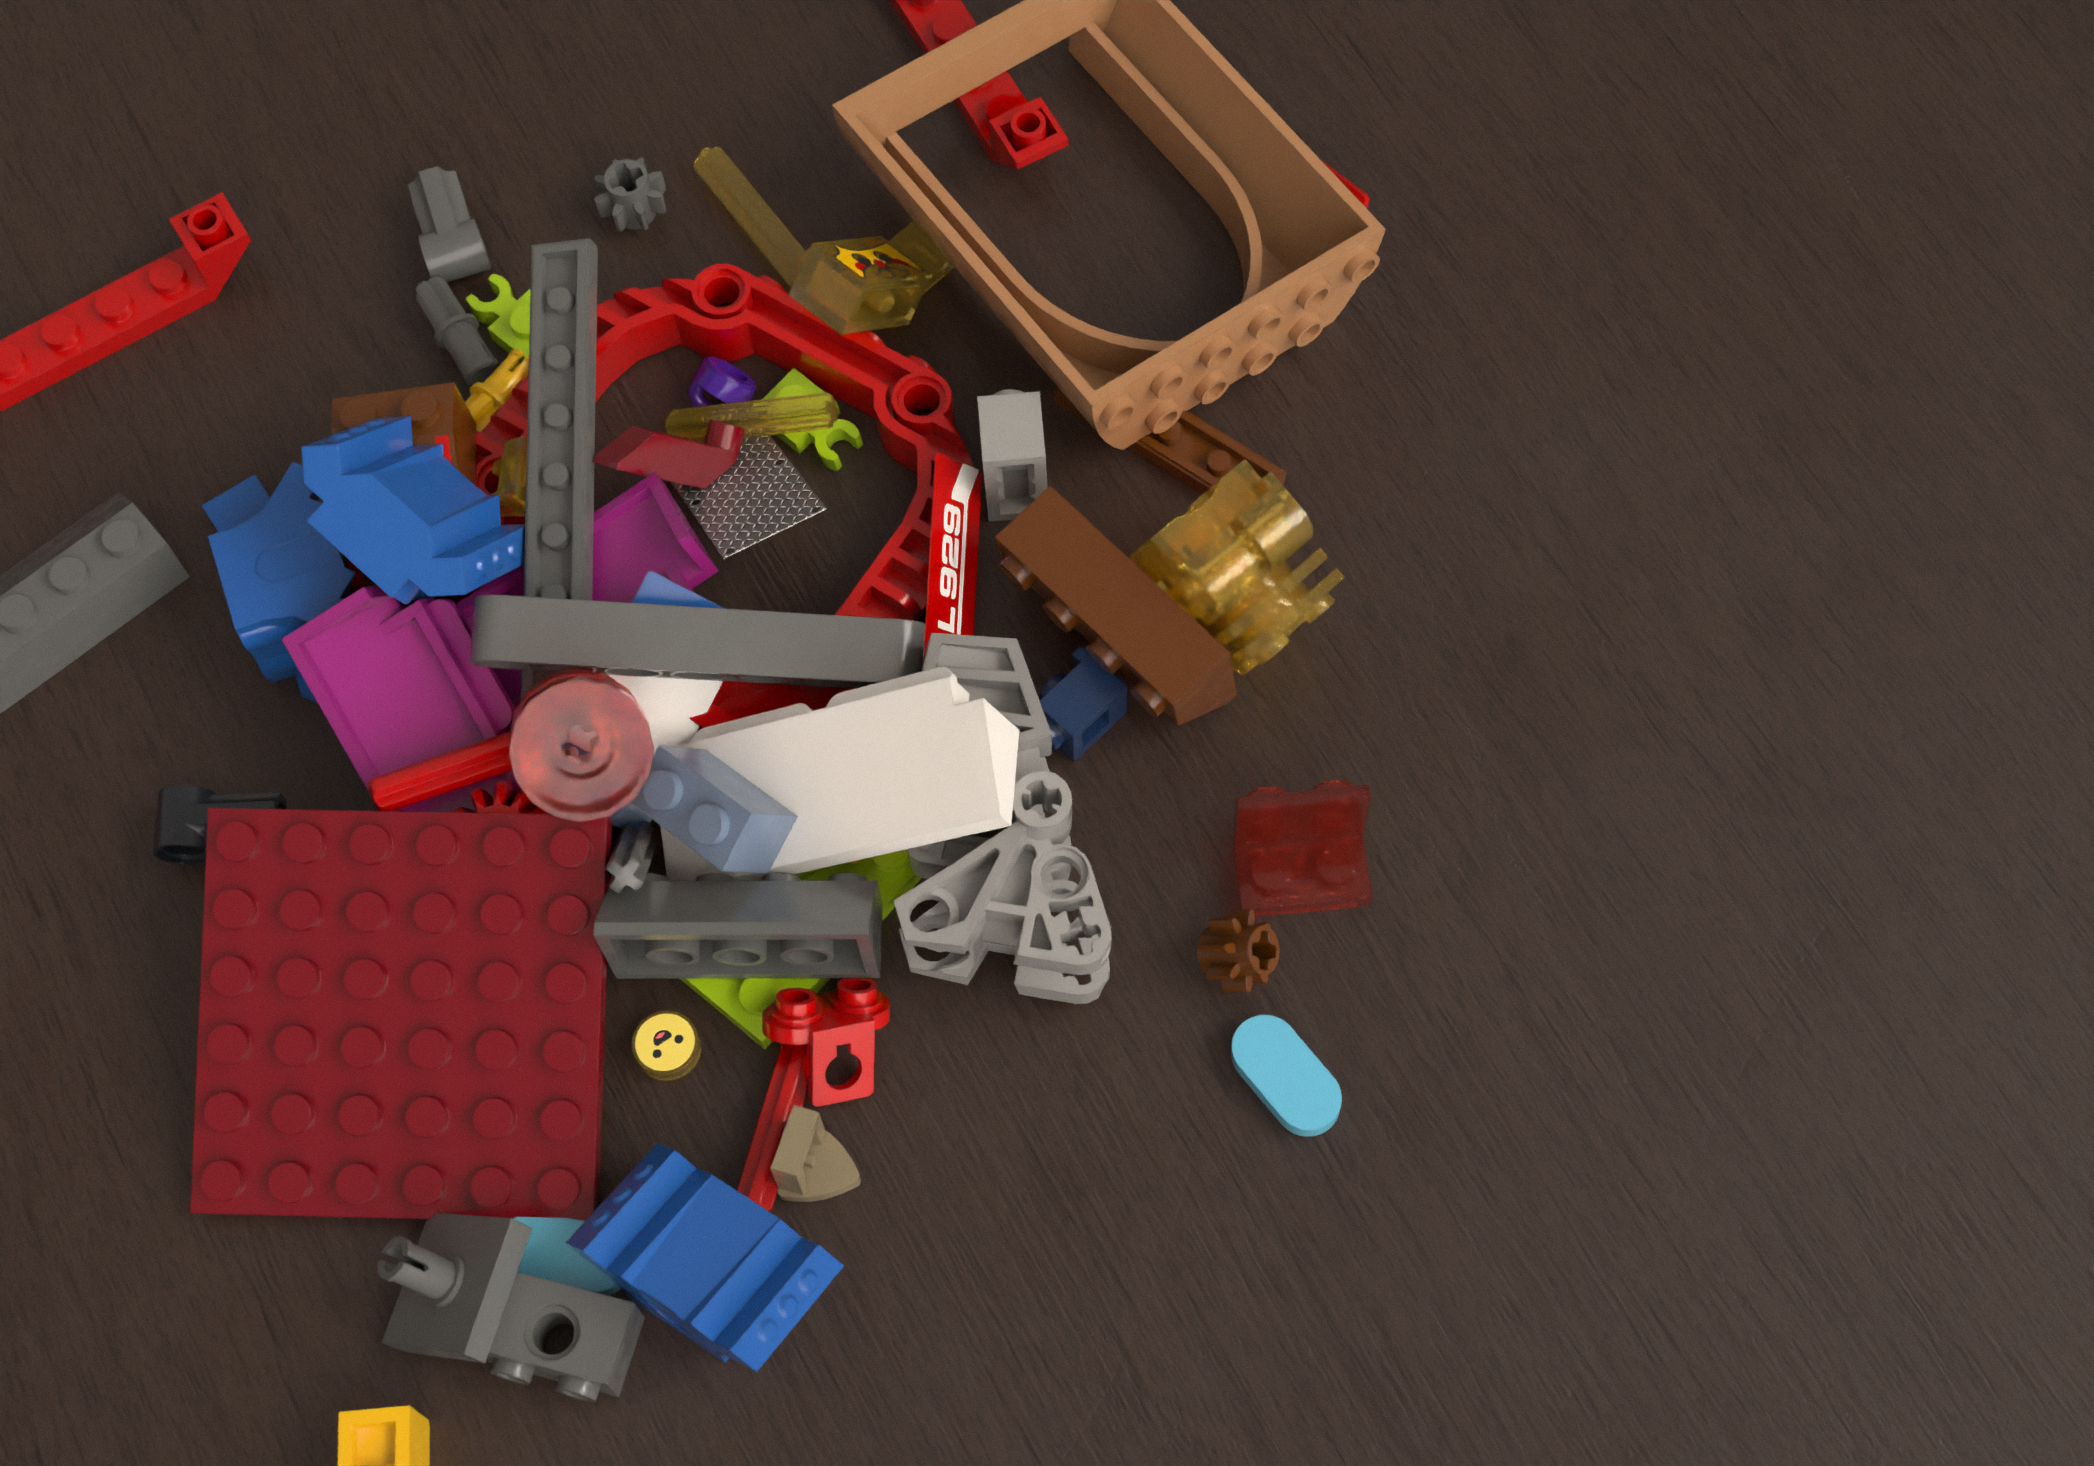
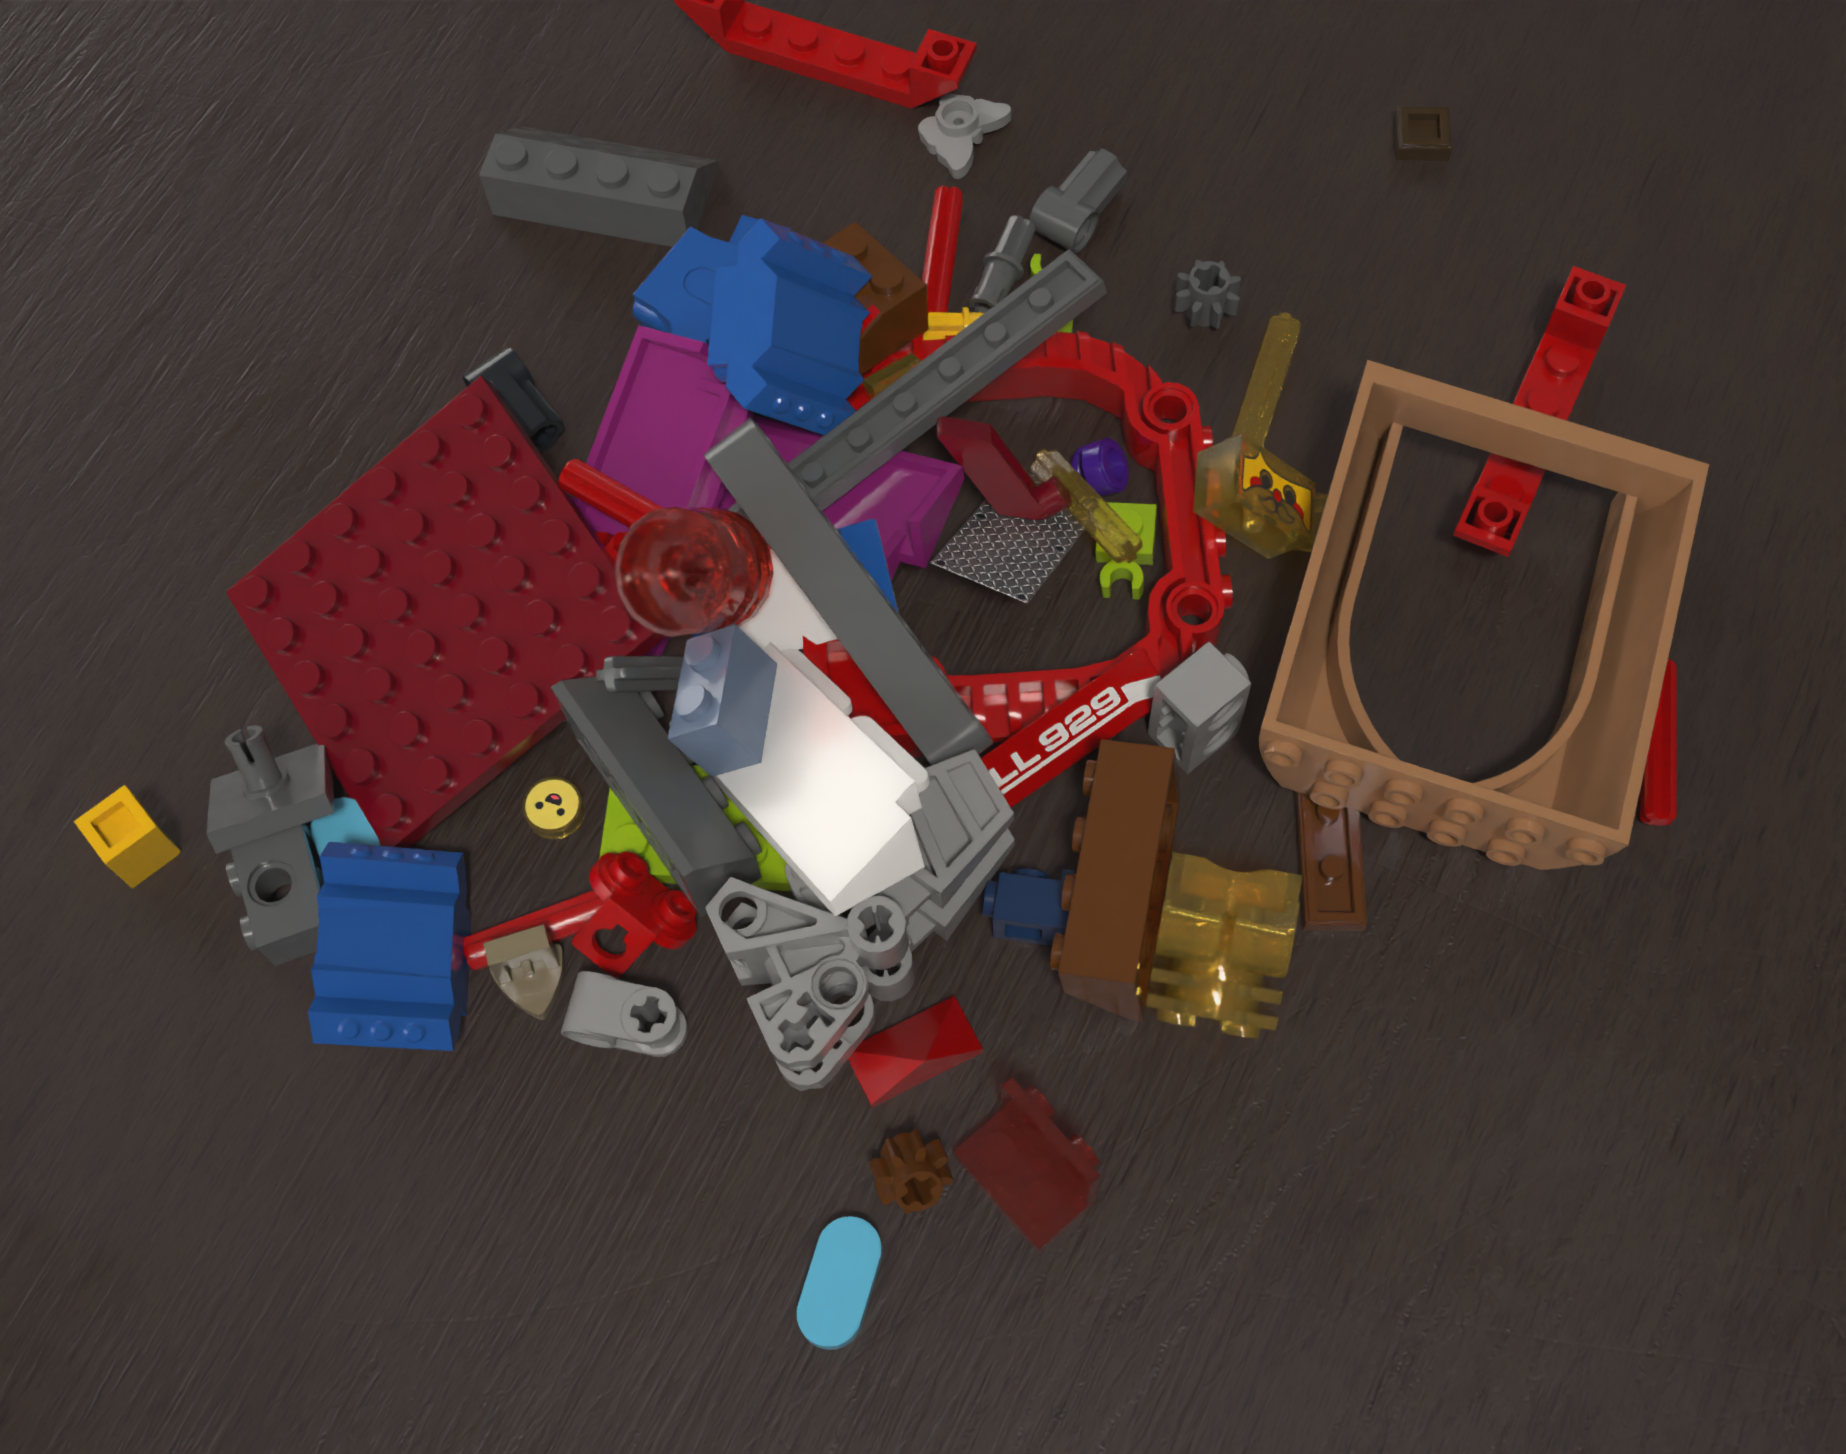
camera: 55 degrees right, 0 degrees up
(279, 275) = (957, 126): none -> light grey animal
(374, 354) = (942, 246): none -> red axle
(911, 1108) = (614, 1013): none -> light grey piece
(1131, 884) = (914, 1051): none -> red slope

